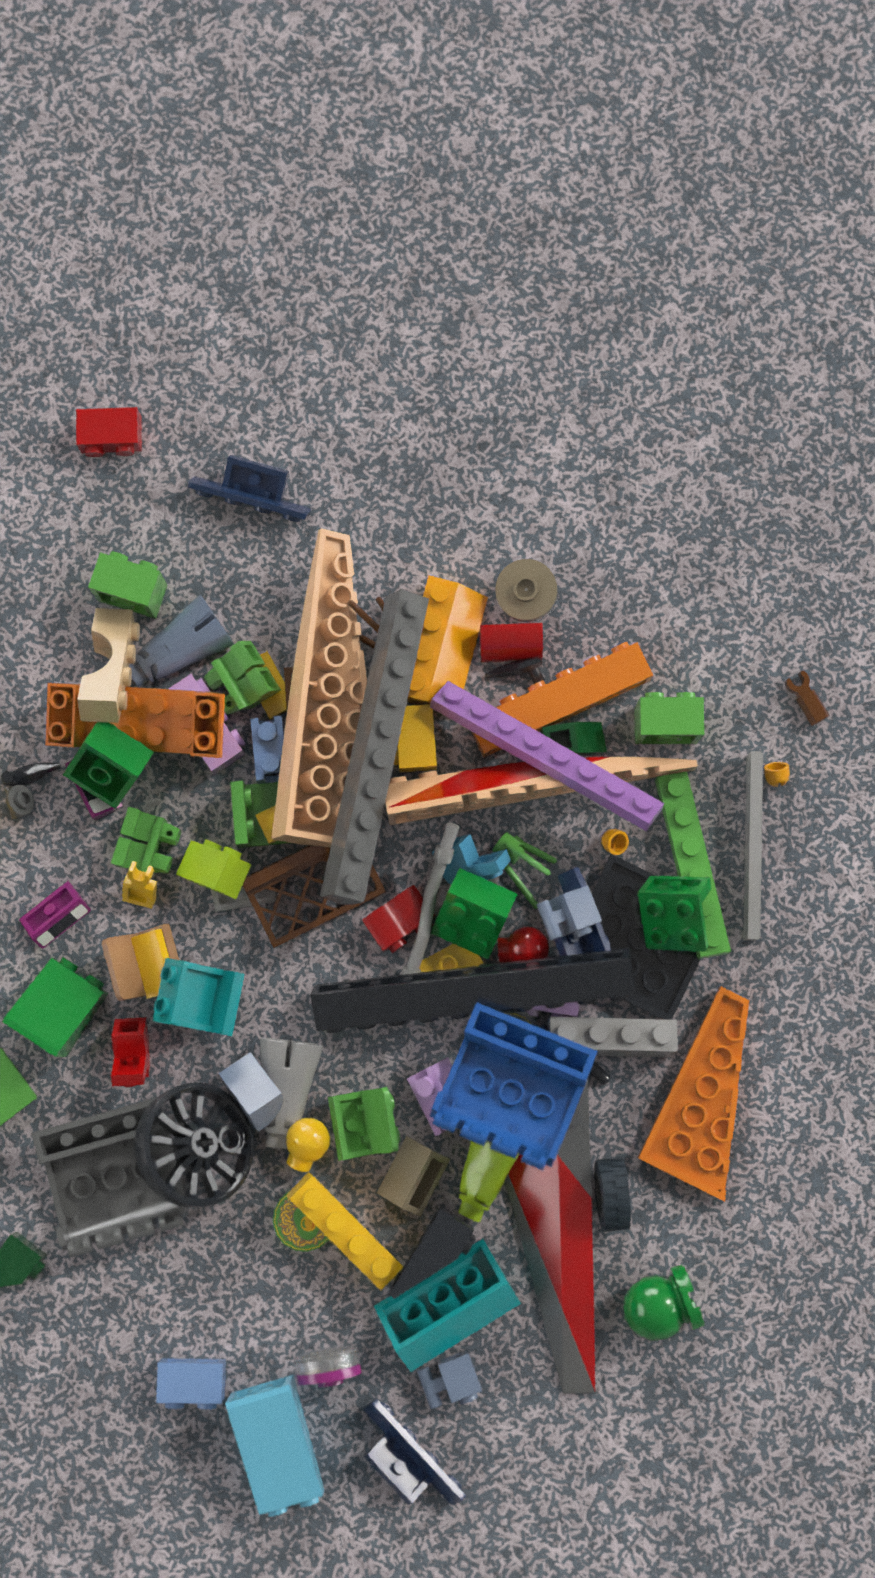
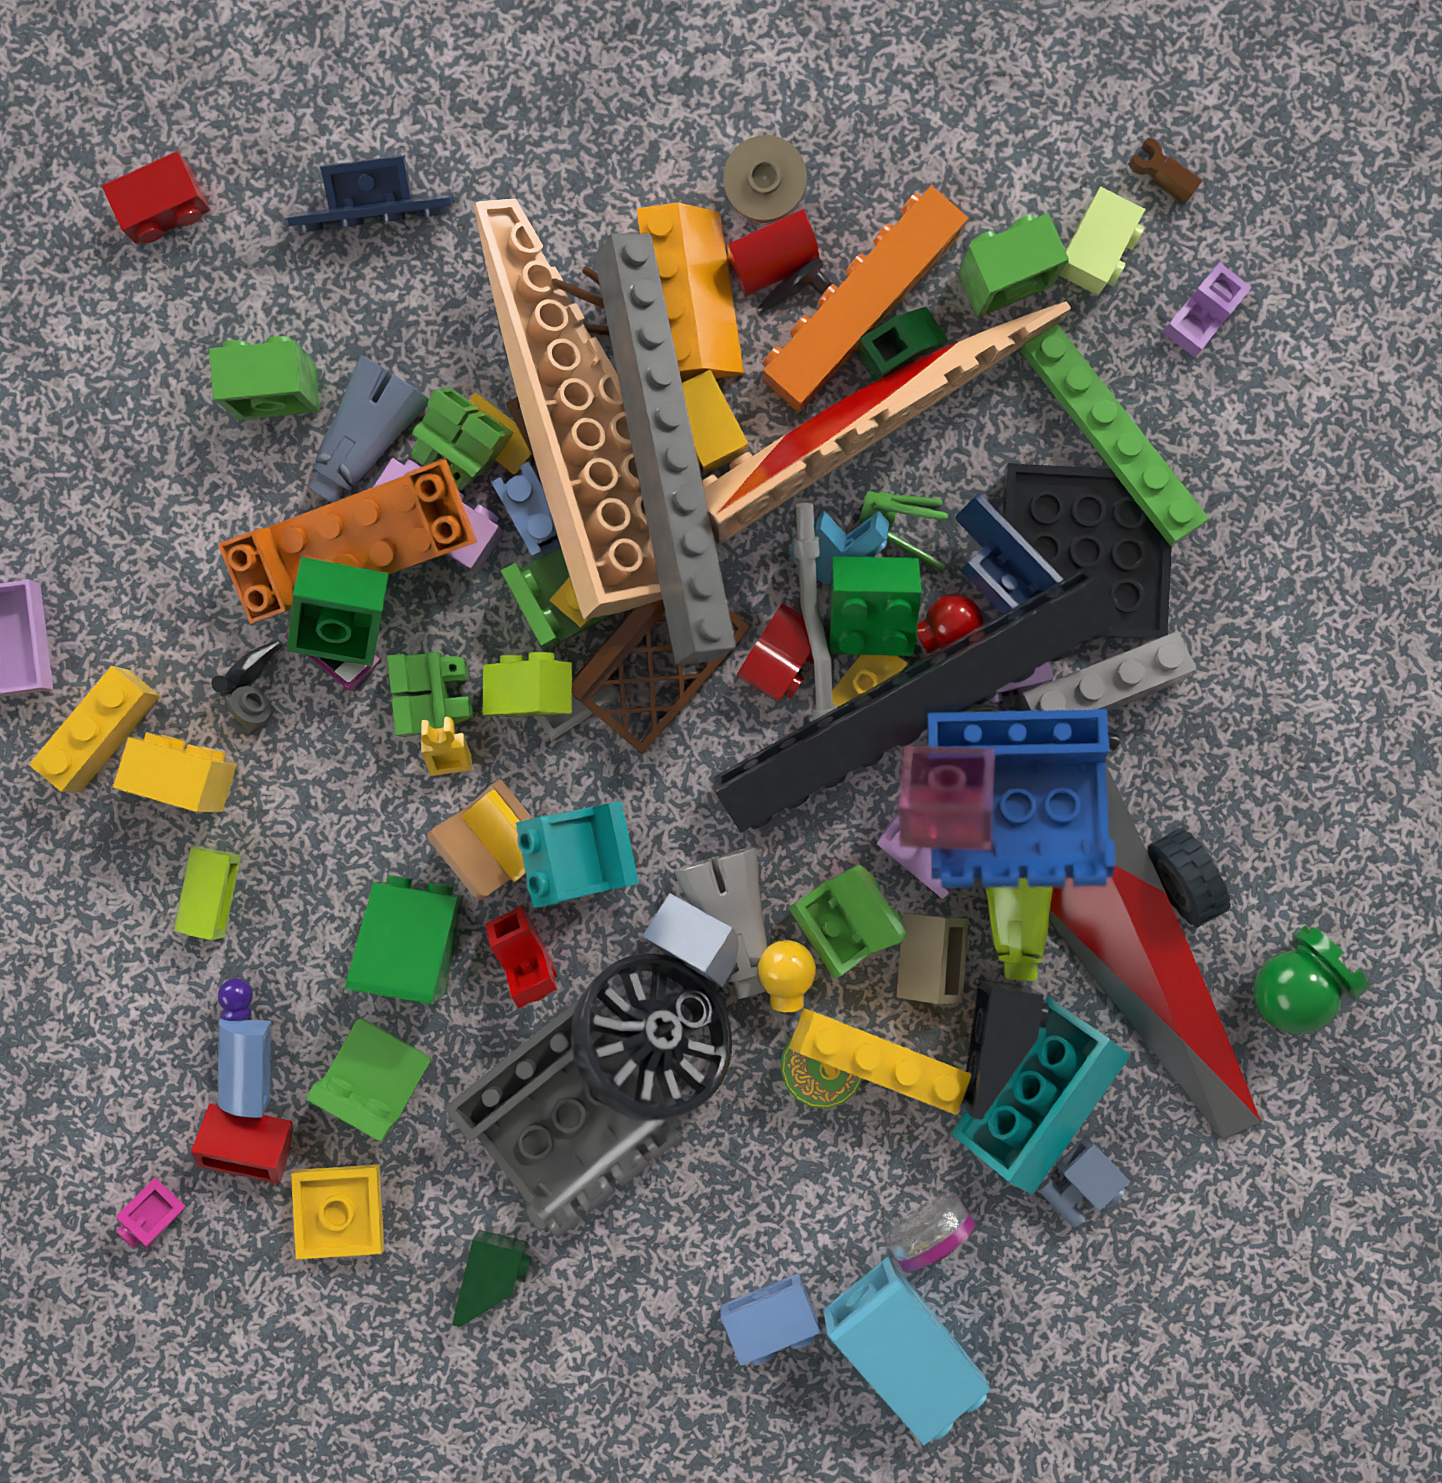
camera: 20 degrees left, 5 degrees up
(54, 915) = (355, 828): magenta slope -> none
(103, 692) = (290, 523): tan arch -> none
(404, 1461) = (1068, 1304): bracket -> none
(461, 1065) = (946, 798): none -> clear pink brick
(547, 755) = (884, 369): medium lavender plate -> none
(569, 914) = (996, 554): sand blue brick -> none
(615, 841) = (1005, 446): light orange hinge -> none
(674, 912) = (1122, 499): green bracket -> none
(699, 1113) = (1246, 729): orange wing -> none
(739, 728) = (1101, 240): none -> yellowish green brick
(753, 846) = (1177, 380): light grey tile -> none
(777, 773) = (1167, 280): light orange hinge -> none
(796, 805) = (1207, 309): none -> medium lavender slope

